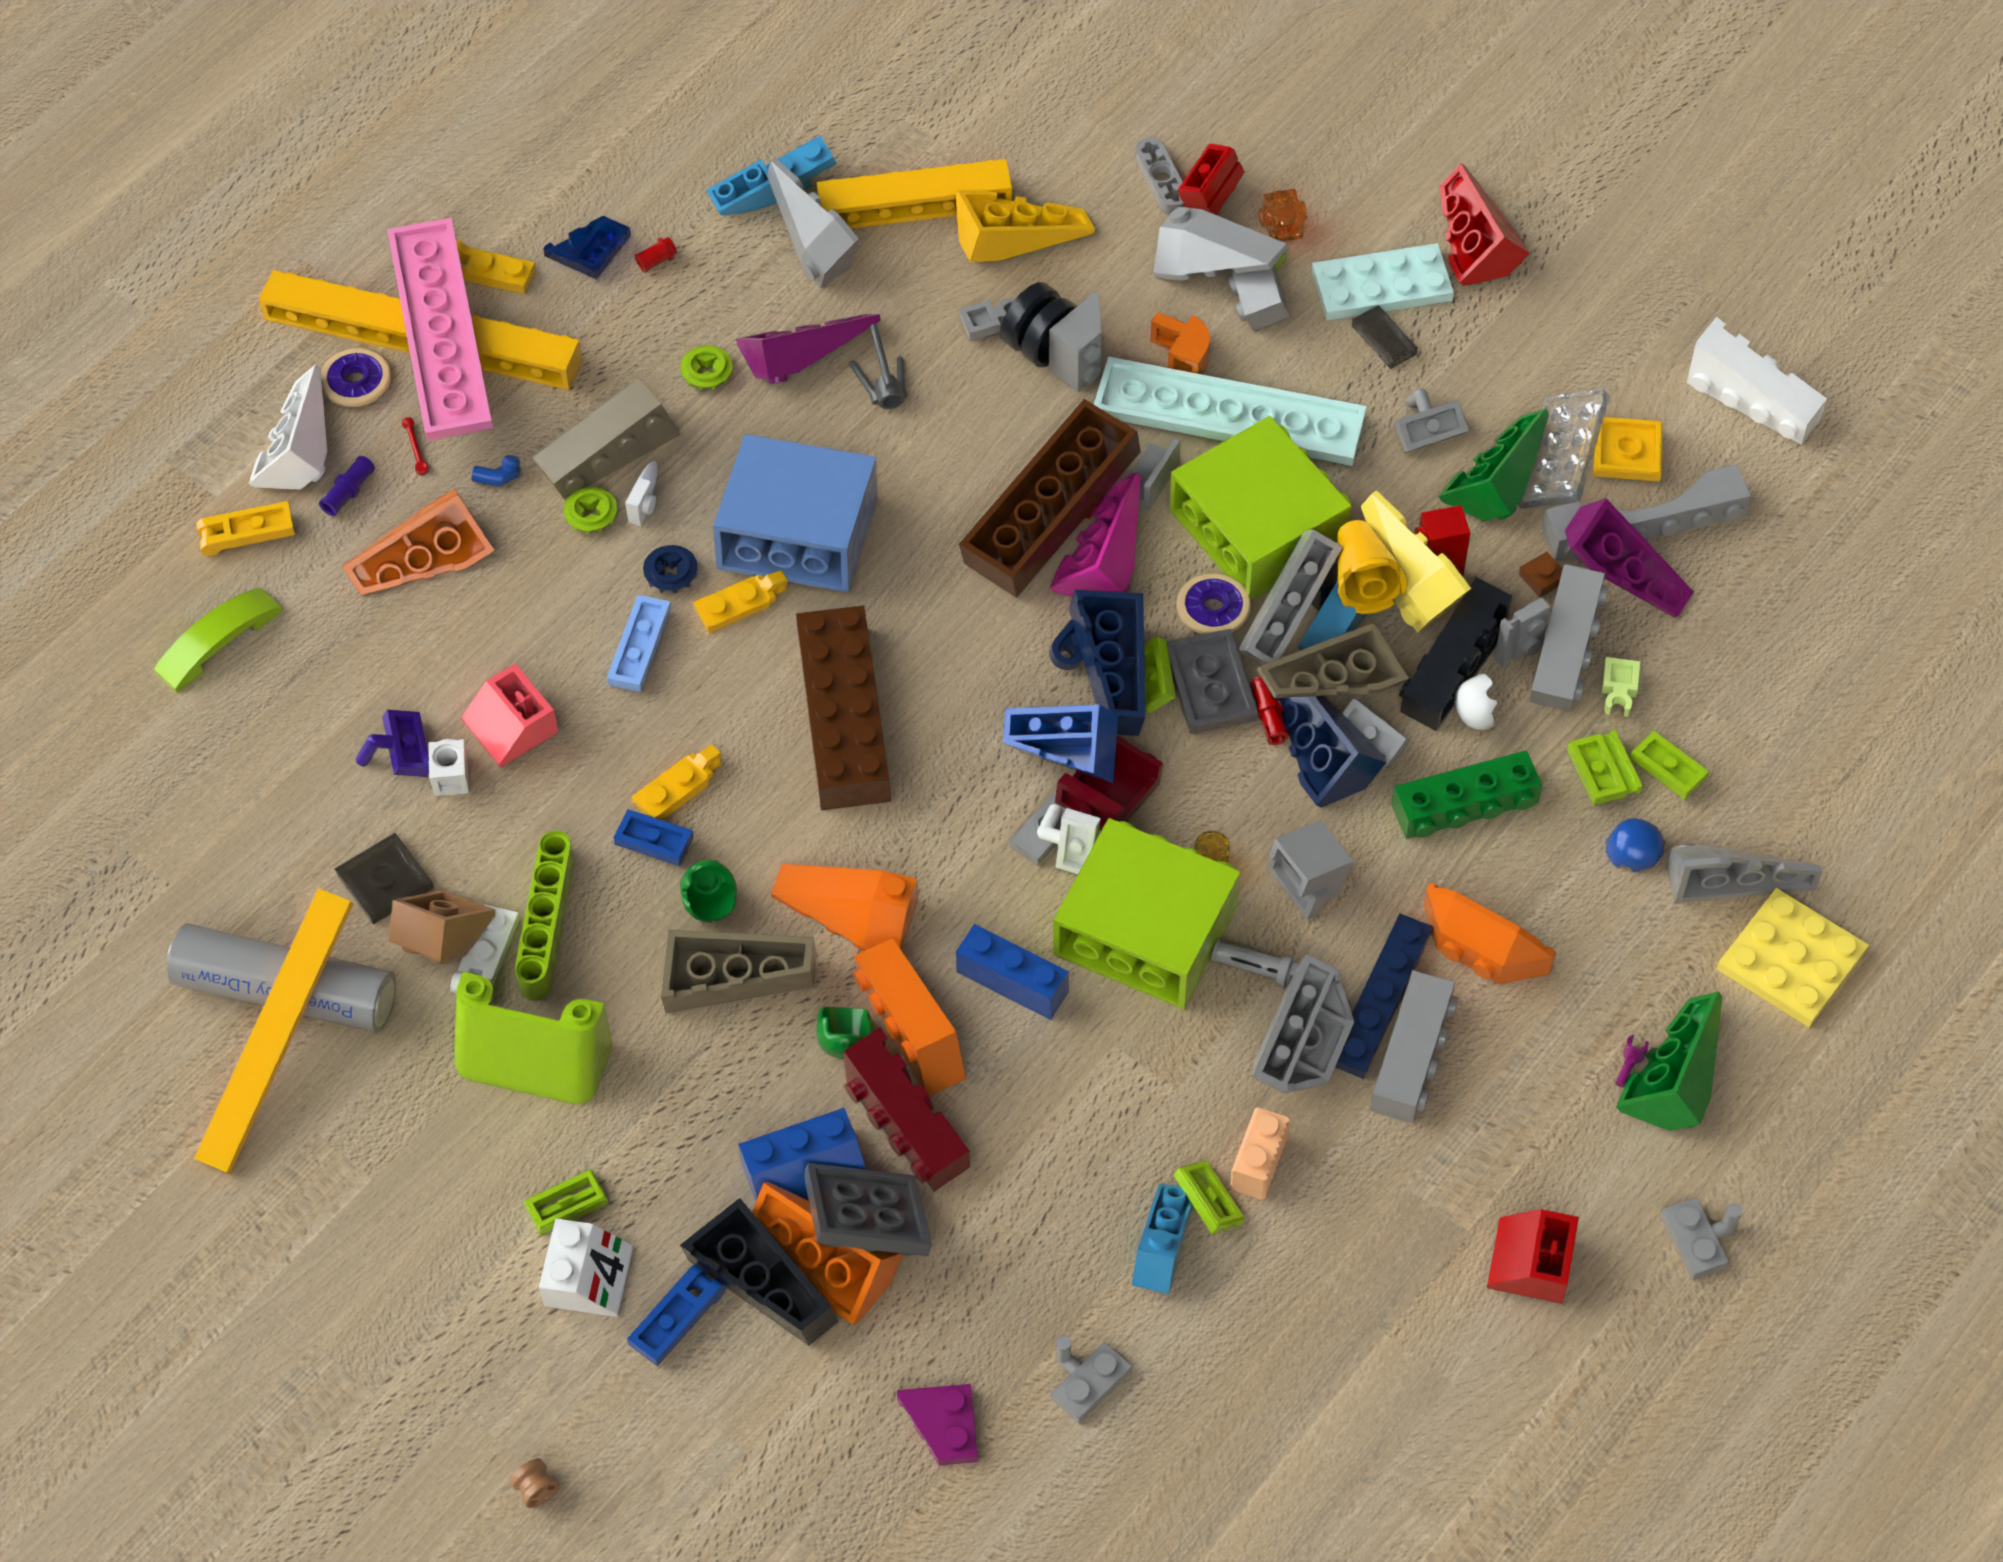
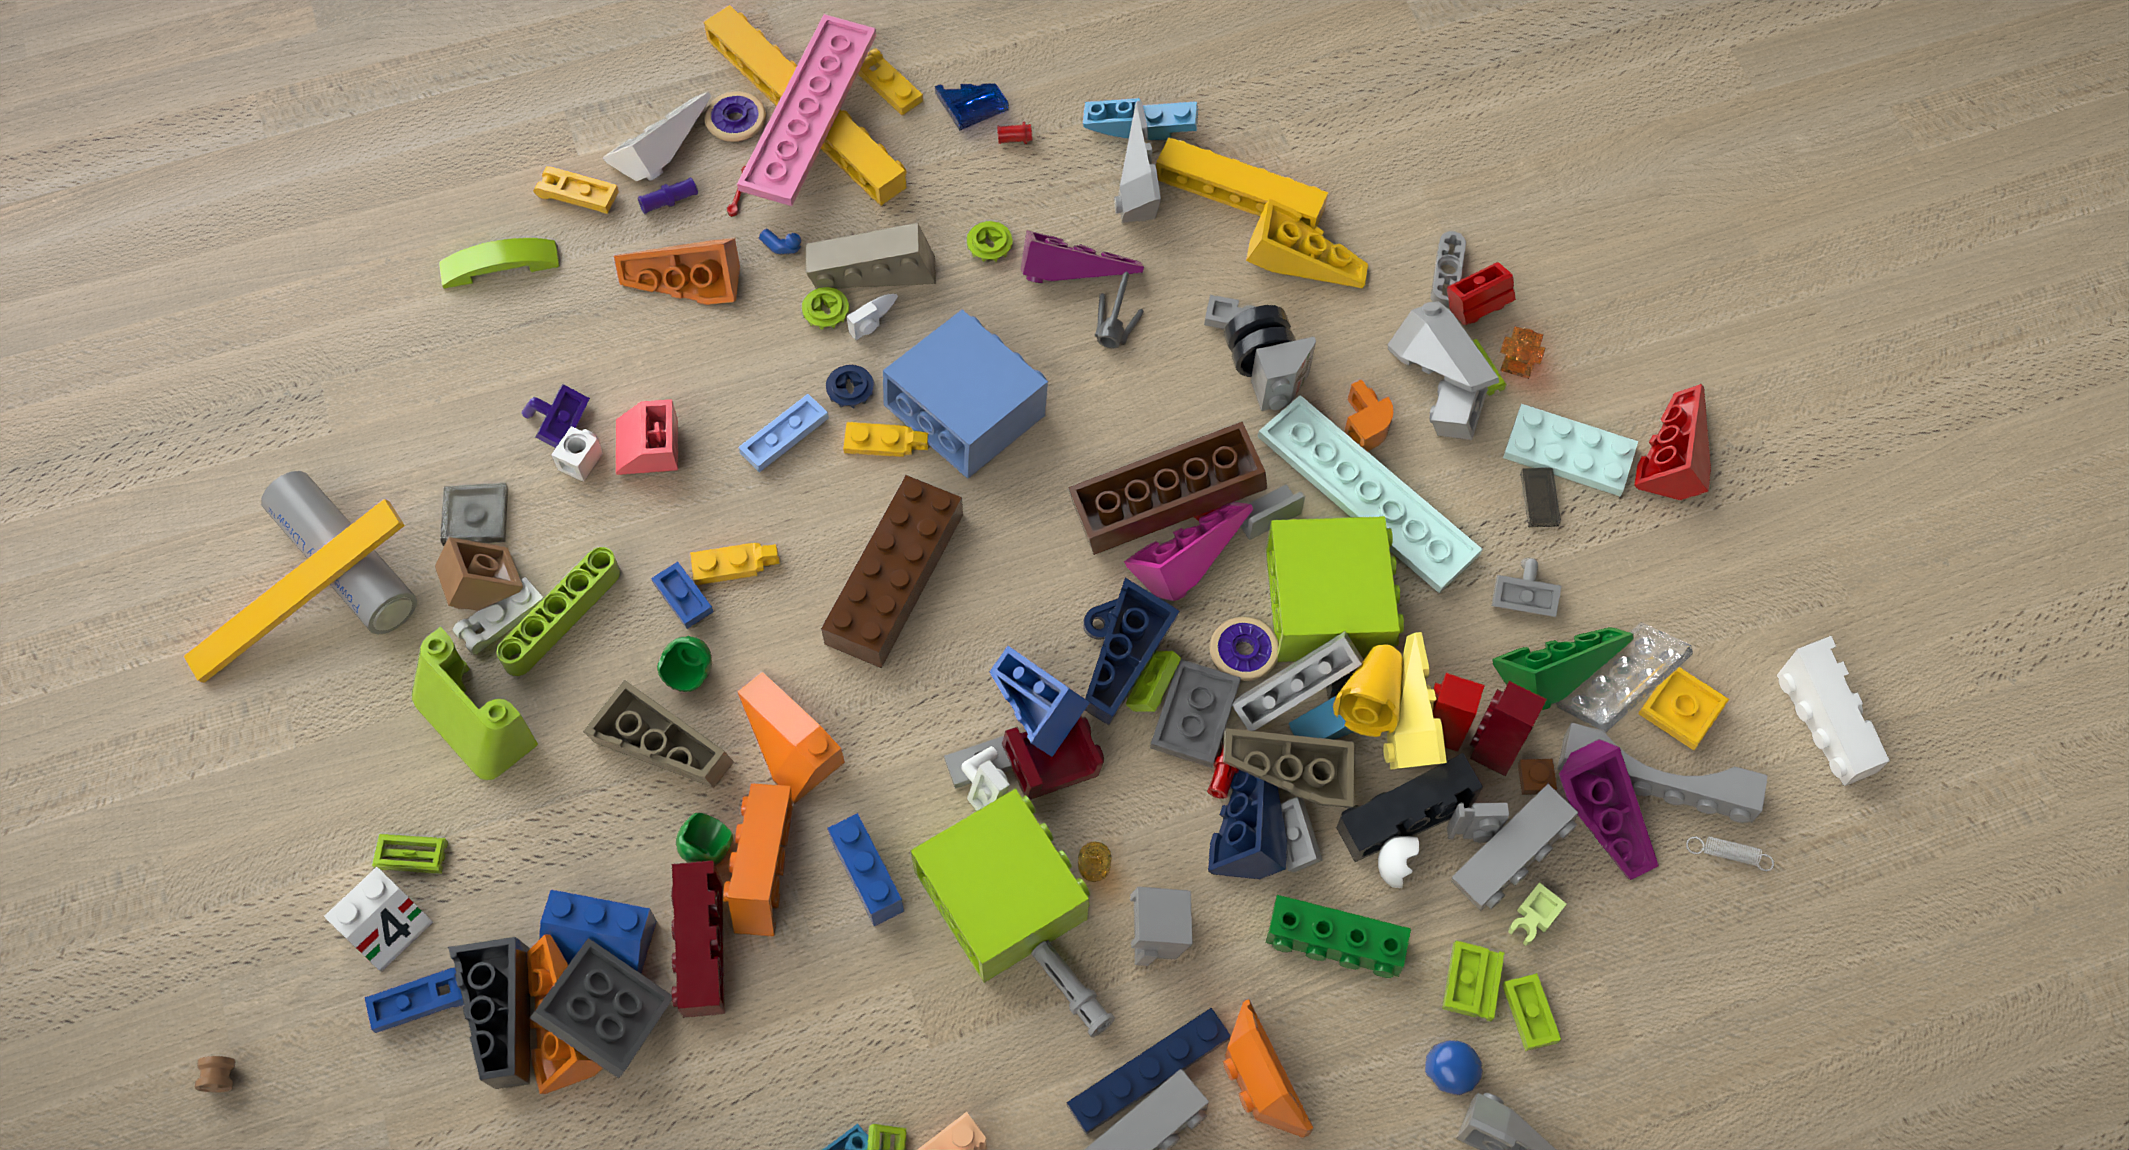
camera: 30 degrees right, 5 degrees up
(1305, 1030) = (1055, 1069): light grey wedge -> none
(1498, 534) = (1505, 727): none -> dark red wedge
(1741, 539) = (1740, 858): none -> white piece

